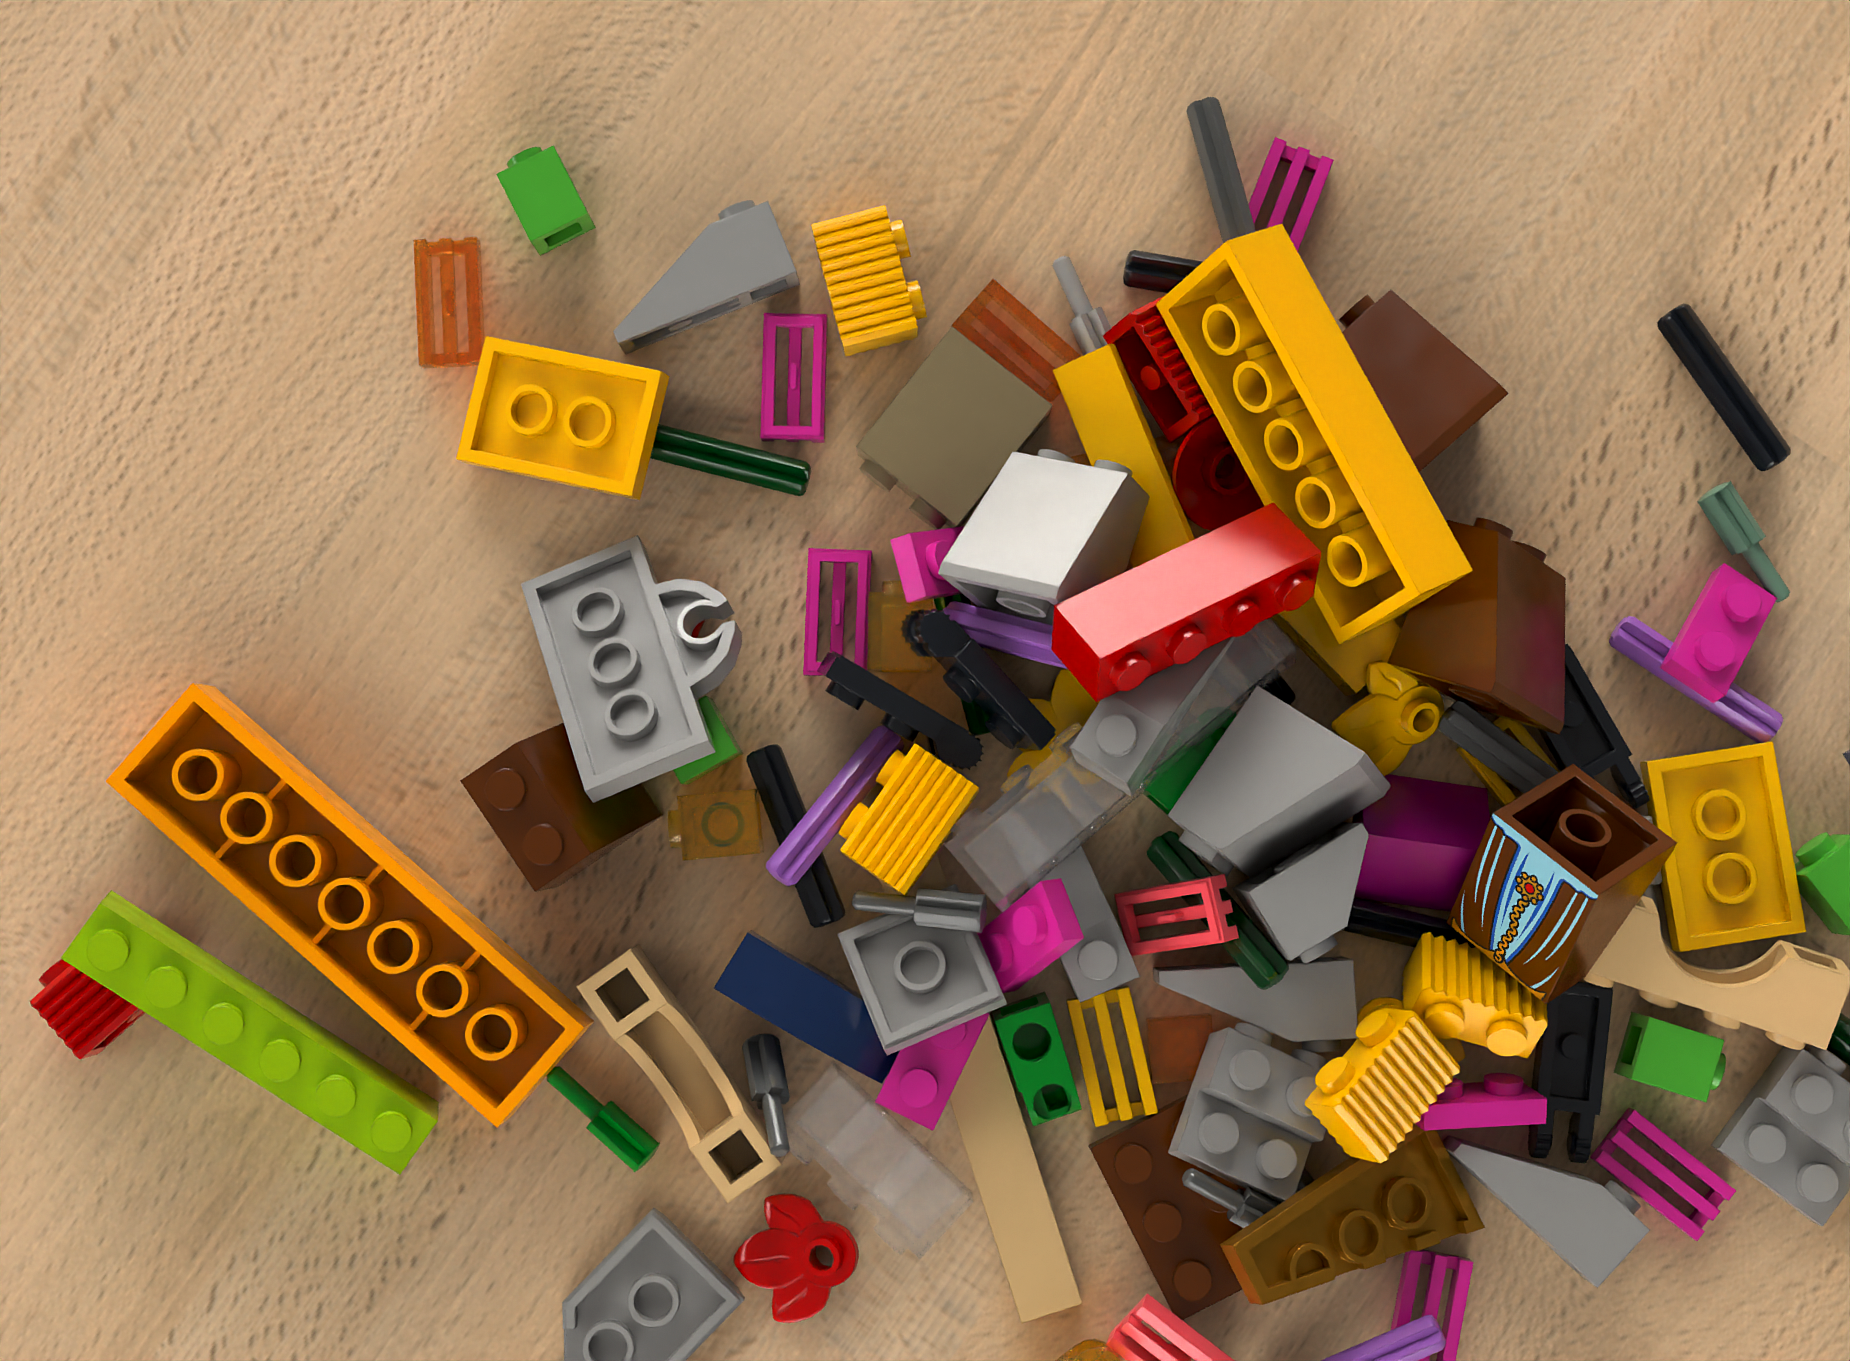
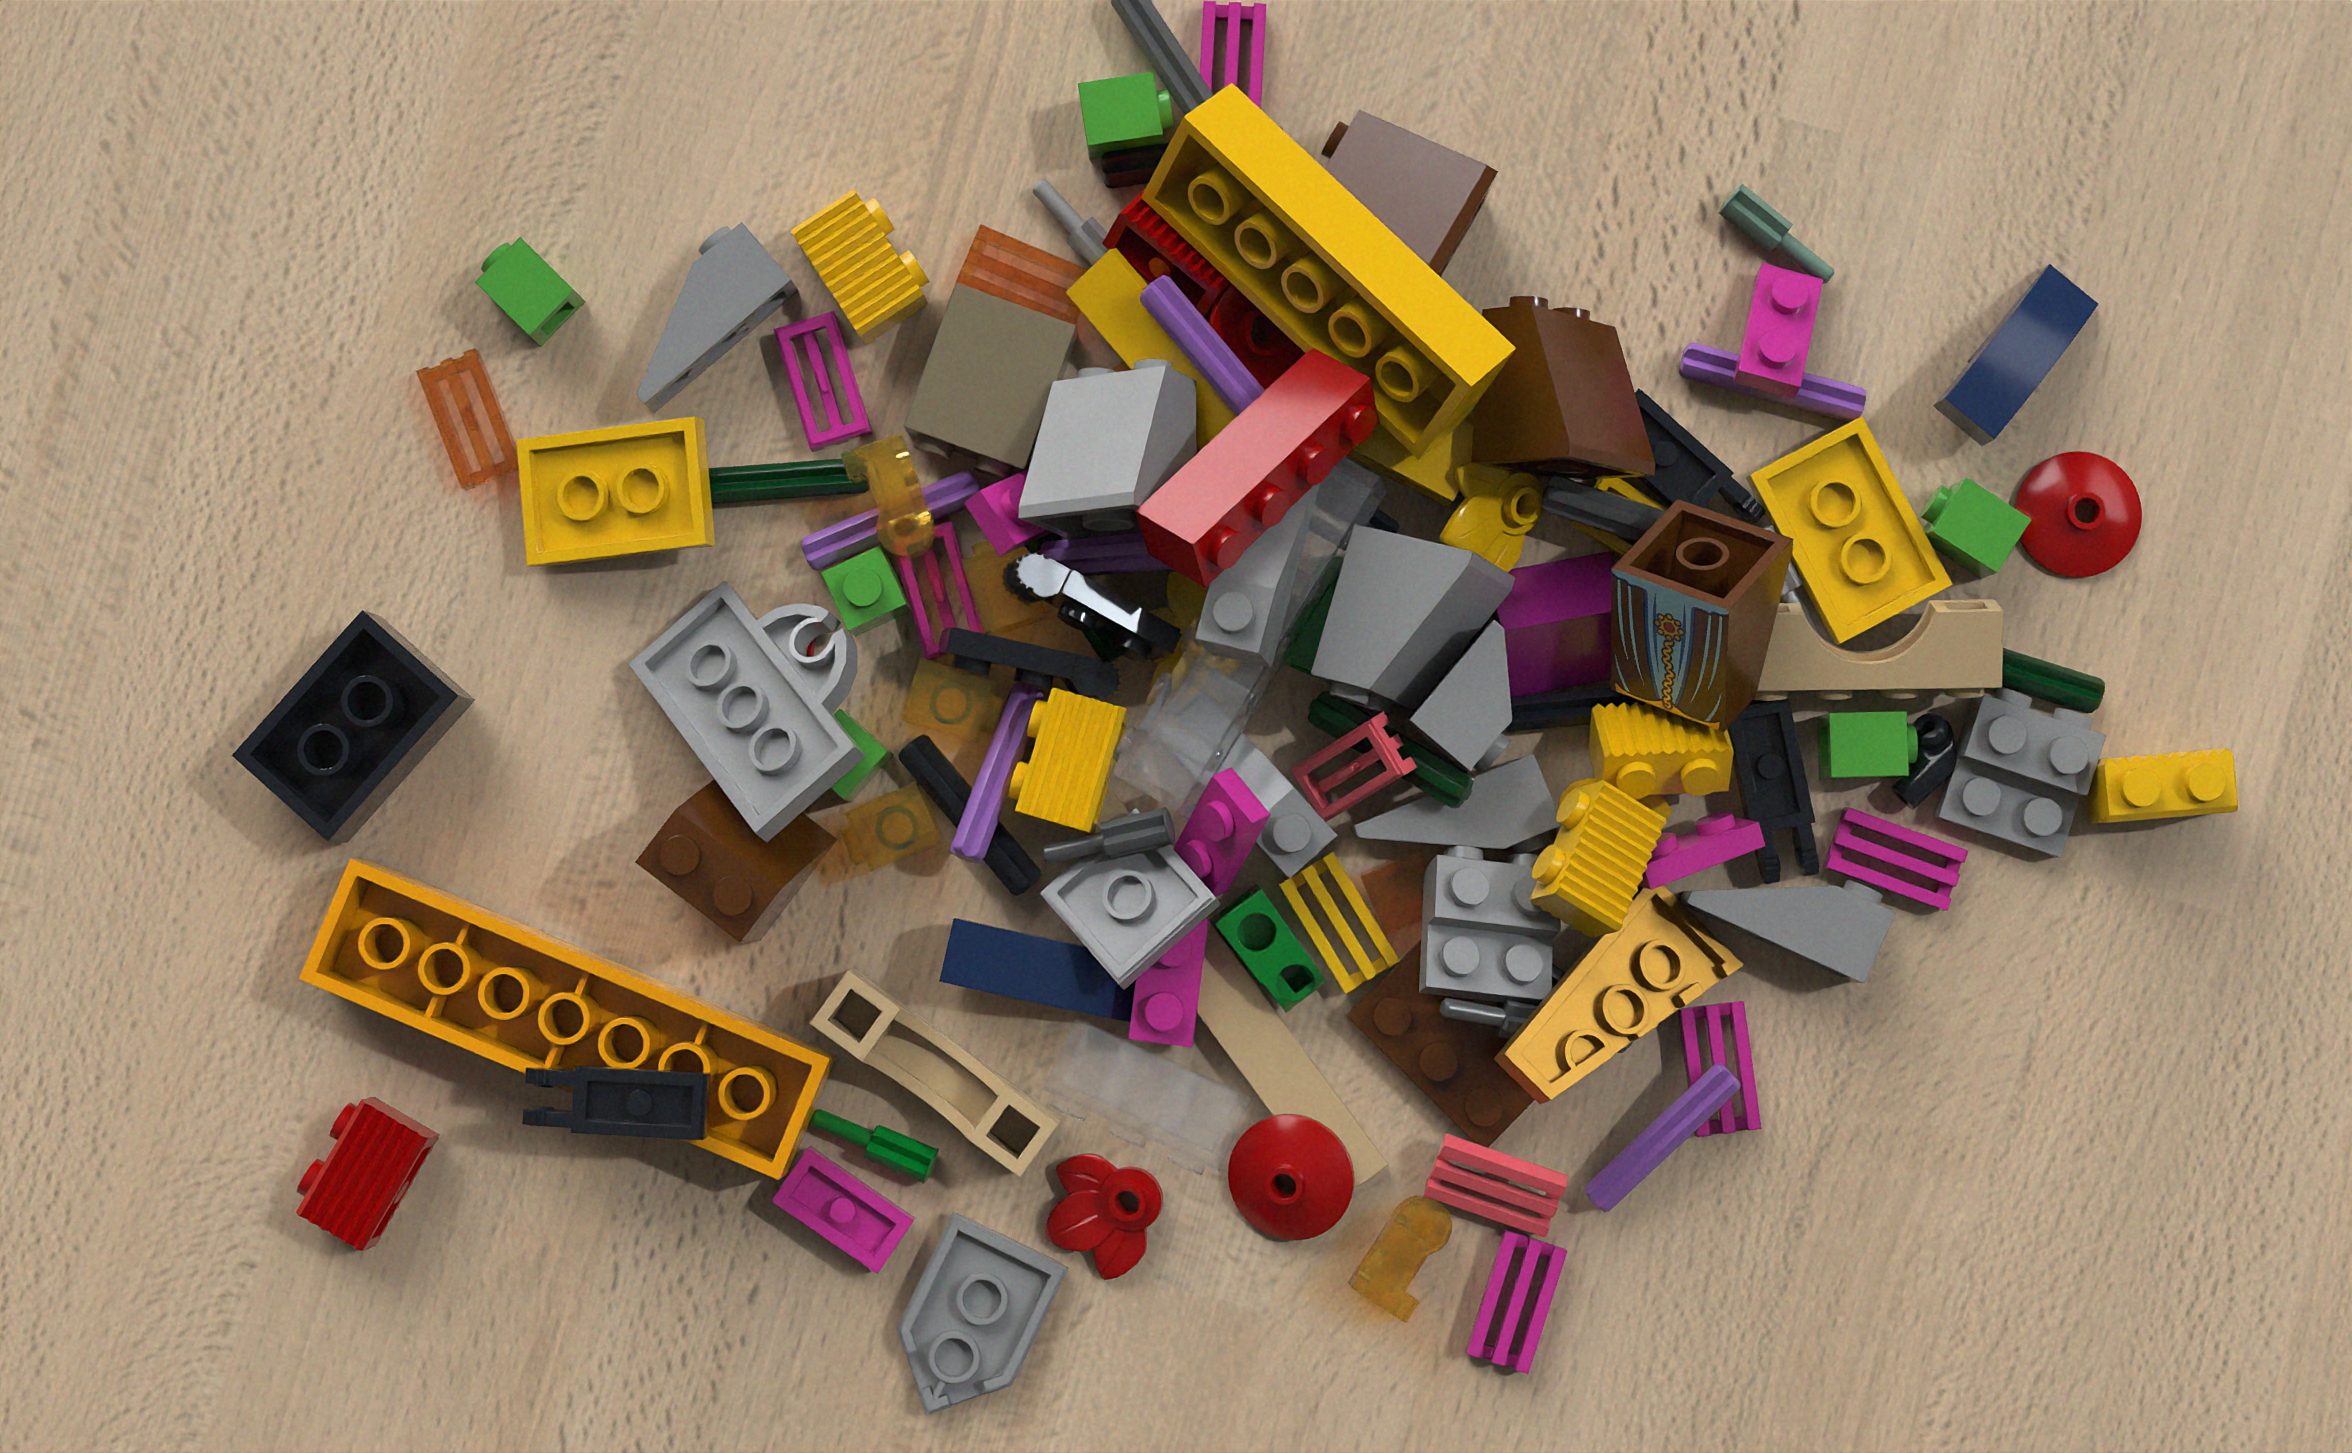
camera: 15 degrees left, 0 degrees up
(239, 558) = (353, 727): none -> black brick
(253, 1031) = (518, 1168): lime brick -> none
(374, 1005) = (625, 1101): none -> black hinge
(550, 1171) = (843, 1209): none -> dark pink plate
(768, 1087) = (1022, 1058): dark grey axle -> none
(769, 591) = (866, 591): none -> bright green brick
(813, 530) = (860, 531): none -> medium lavender axle
(815, 724) = (952, 702): none -> clear yellow brick
(829, 531) = (904, 517): none -> clear yellow leg
(1008, 1269) = (1306, 1153): none -> red dish
(1164, 218) = (1124, 113): none -> bright green brick
(1167, 464) = (1201, 344): none -> medium lavender axle
(1723, 387) = (1707, 96): black axle -> none
(1731, 1095) = (1933, 763): none -> black arm

